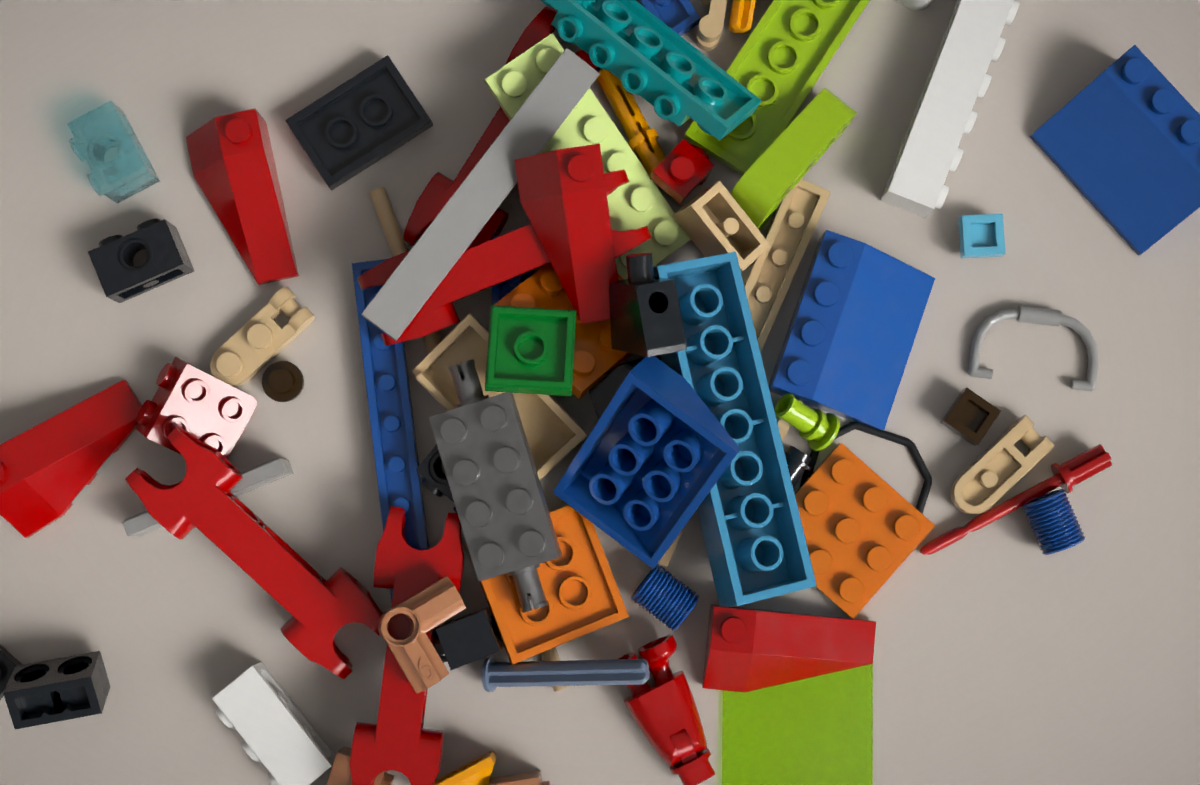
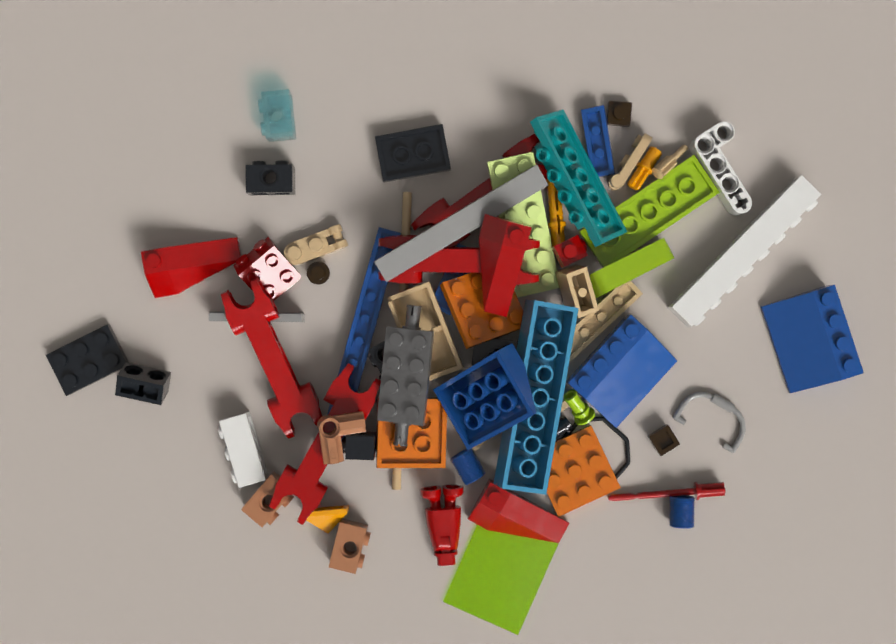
camera: 20 degrees right, 5 degrees up
(240, 180) = (338, 157): red wedge -> none
(530, 350) = (452, 315): green tile -> none
(564, 673) = (401, 483): sand blue axle -> none
(645, 311) = (518, 321): black torso -> none
(981, 236) = (711, 349): medium azure plate -> none
(999, 468) = (666, 472): tan plate -> none

